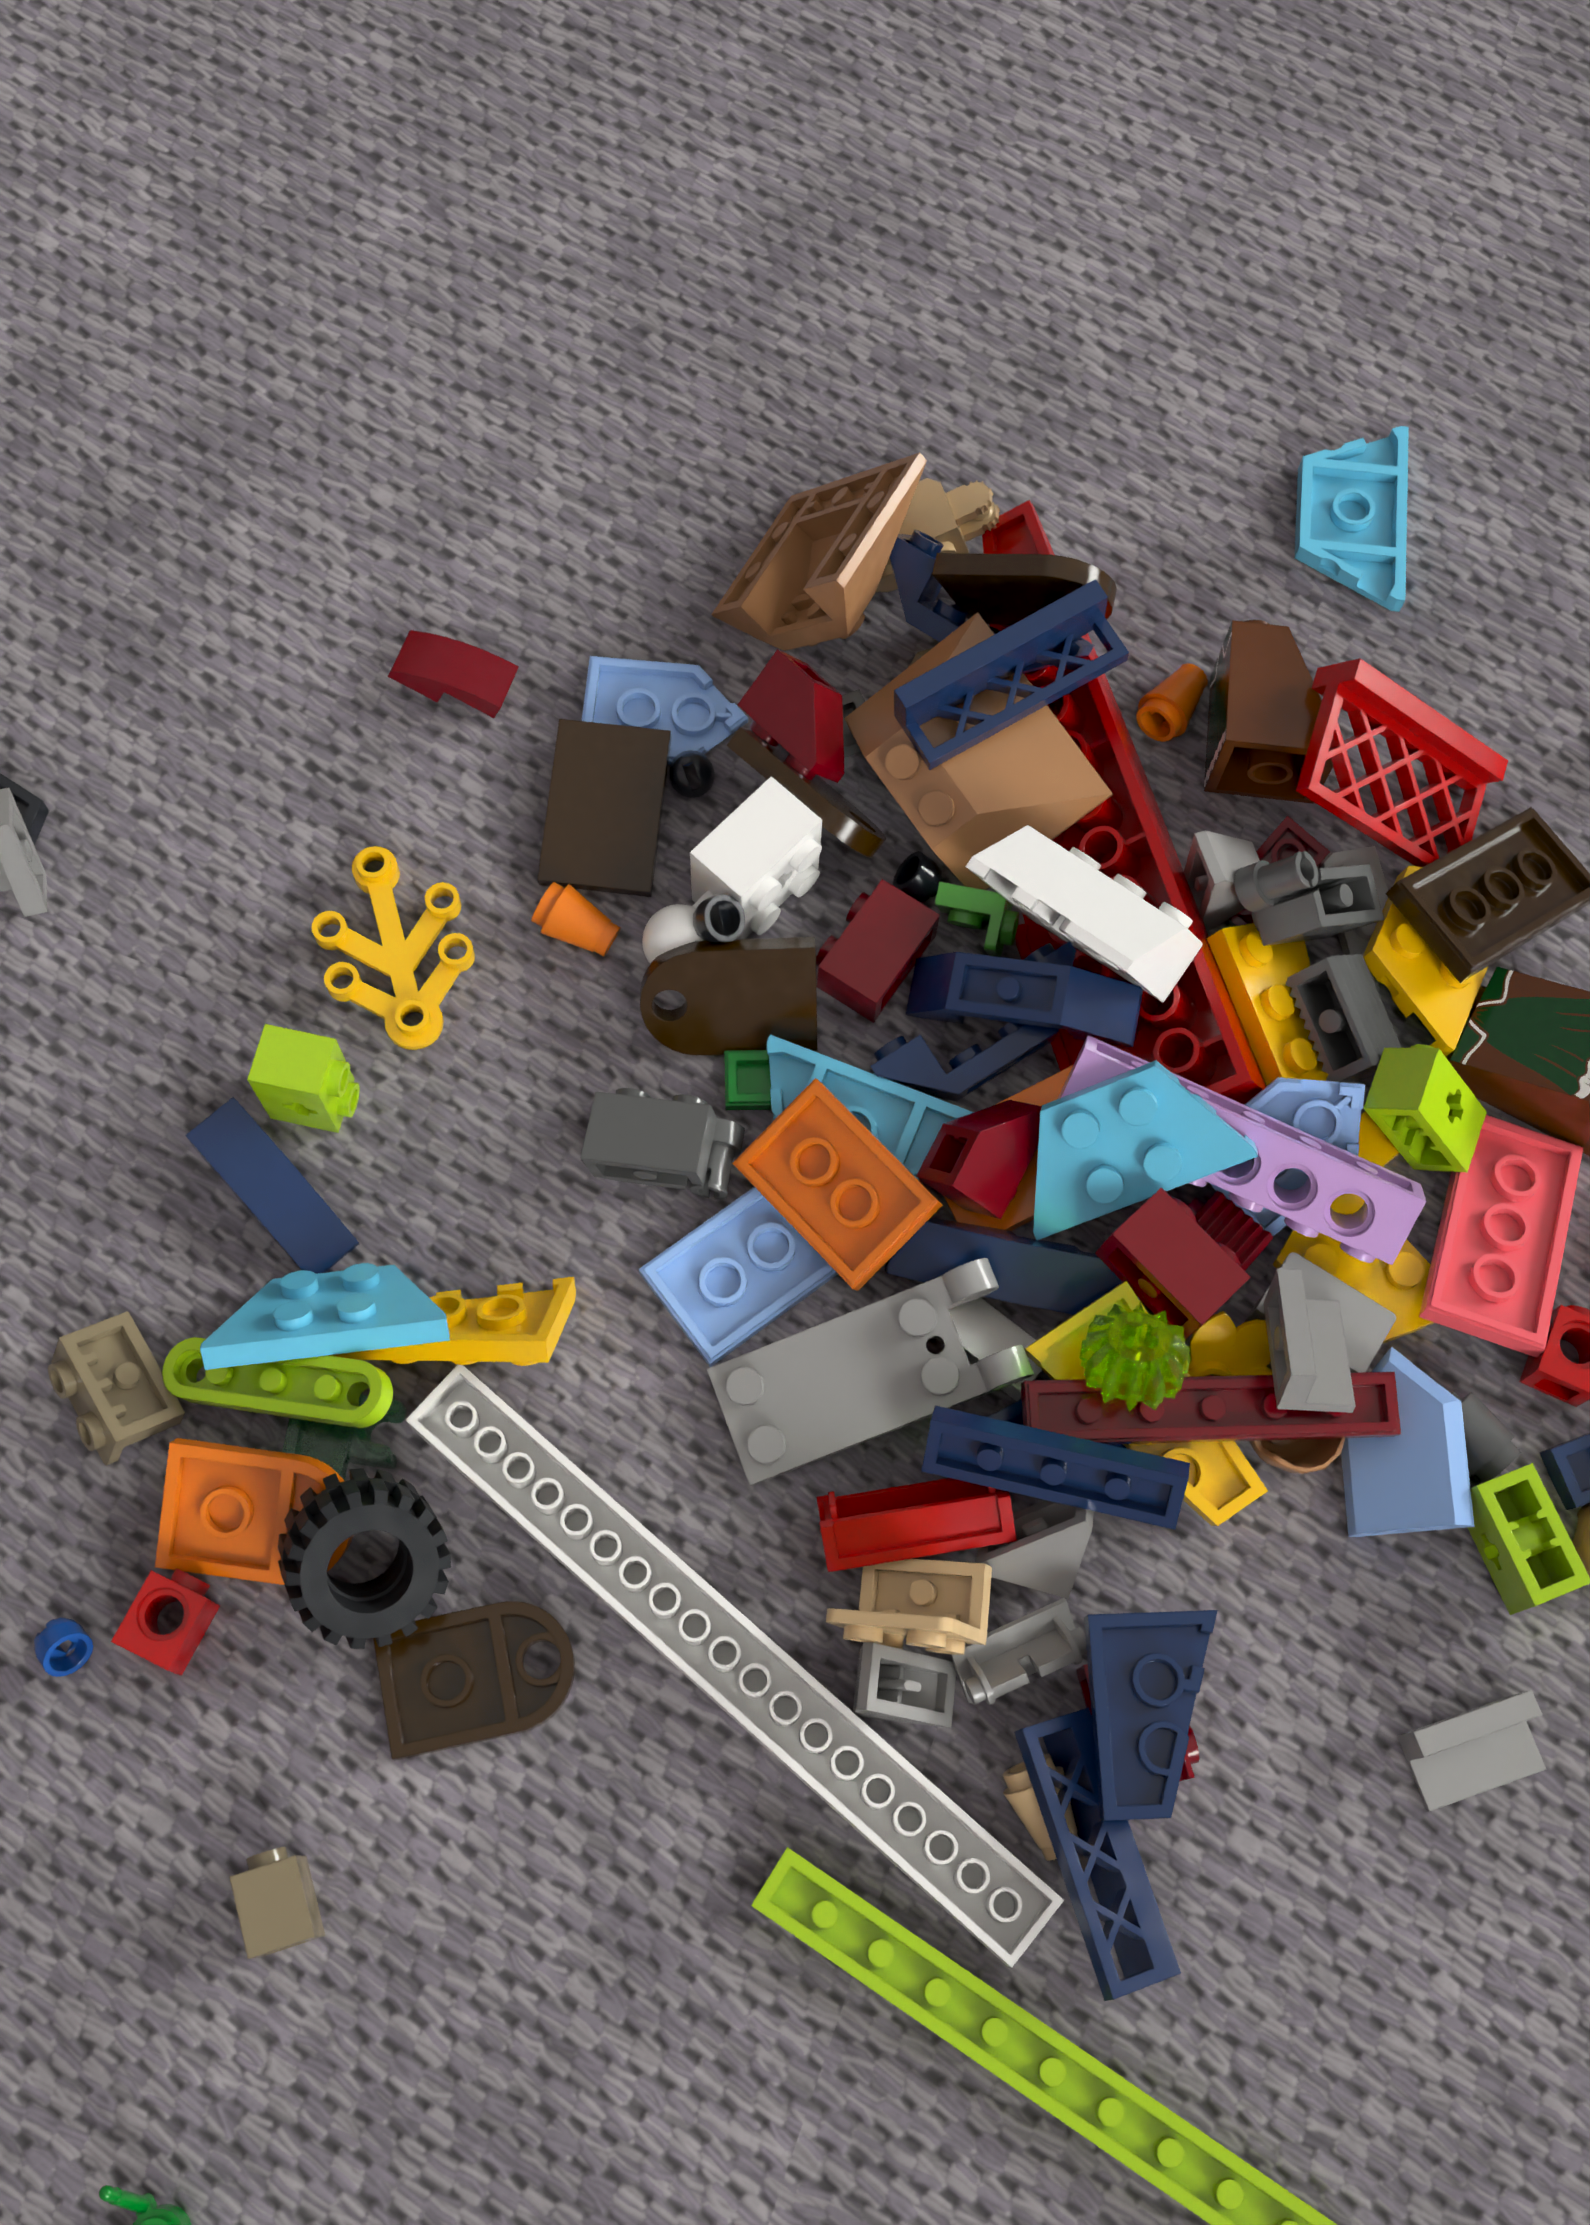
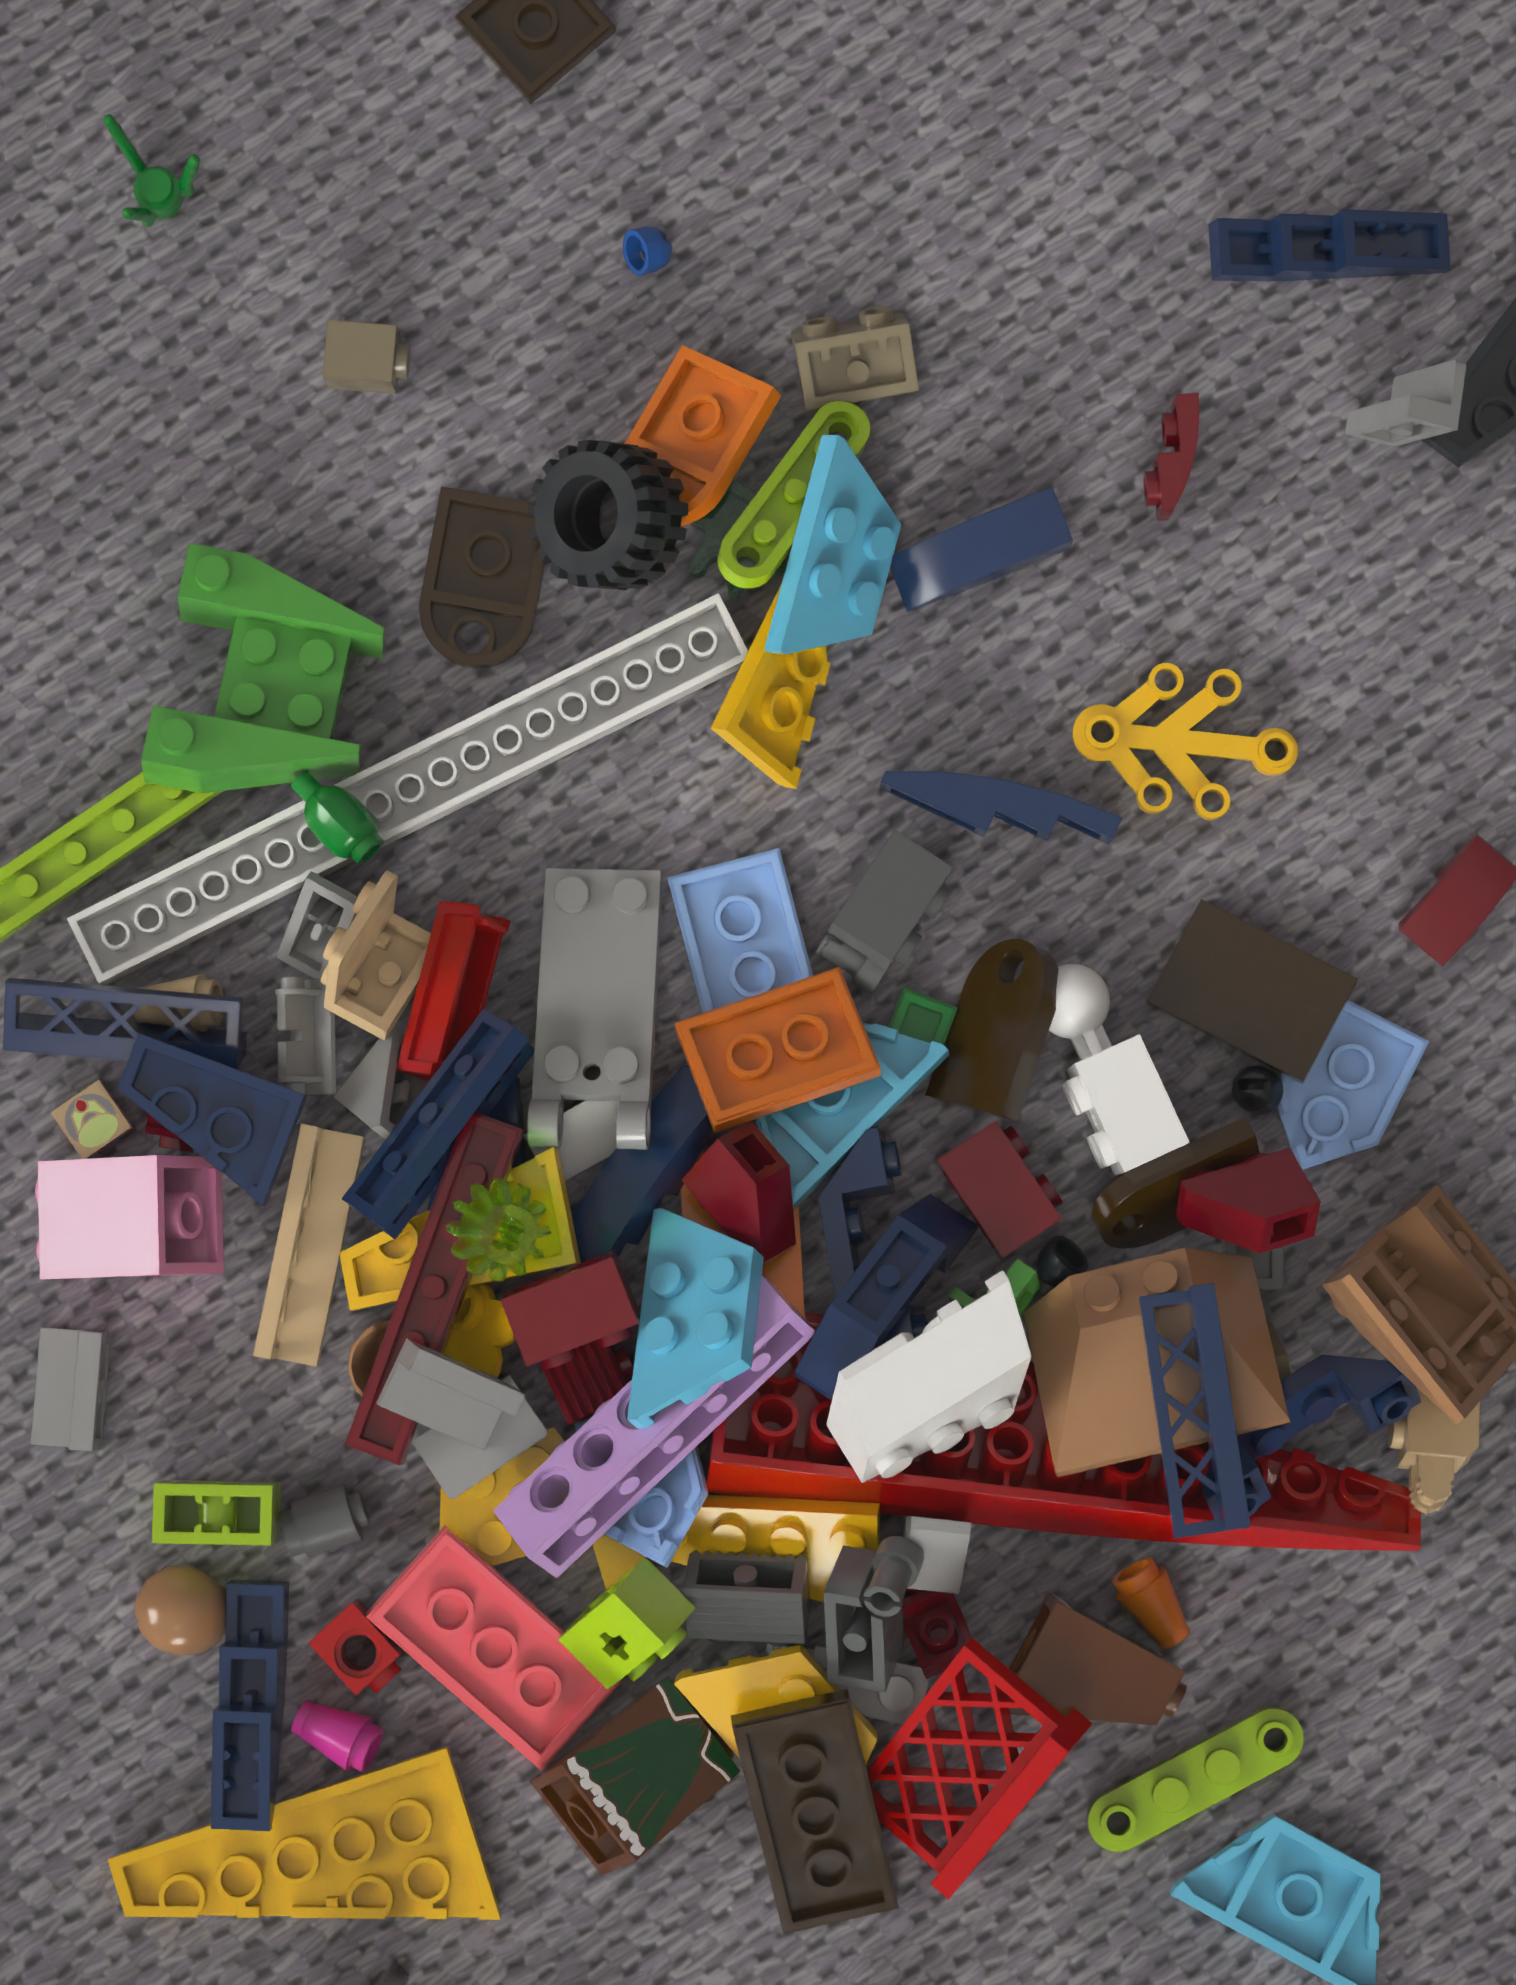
camera: 120 degrees right, 15 degrees up
(140, 1630) = (620, 318): red brick -> none
(141, 1045) = (1172, 469): none -> dark red slope
(303, 1079) = (1067, 609): lime brick -> none
(522, 1095) = (975, 800): none -> dark blue slope
(574, 920) = (1144, 918): orange cone -> none
(665, 1844) = (276, 686): none -> bright green wedge
(719, 919) = (1065, 1047): black hinge -> none
(789, 1707) = (339, 819): none -> green plant
(1014, 585) = (1299, 1476): dark brown tile -> none
(1201, 1849) = (92, 1120): none -> tile
(1221, 1563) = (308, 1246): none -> tan fence
(1268, 597) = (1194, 1779): none -> lime plate
(1288, 1761) = (129, 1217): none -> bright pink slope
(1415, 1477) = (306, 1452): light blue tile -> none

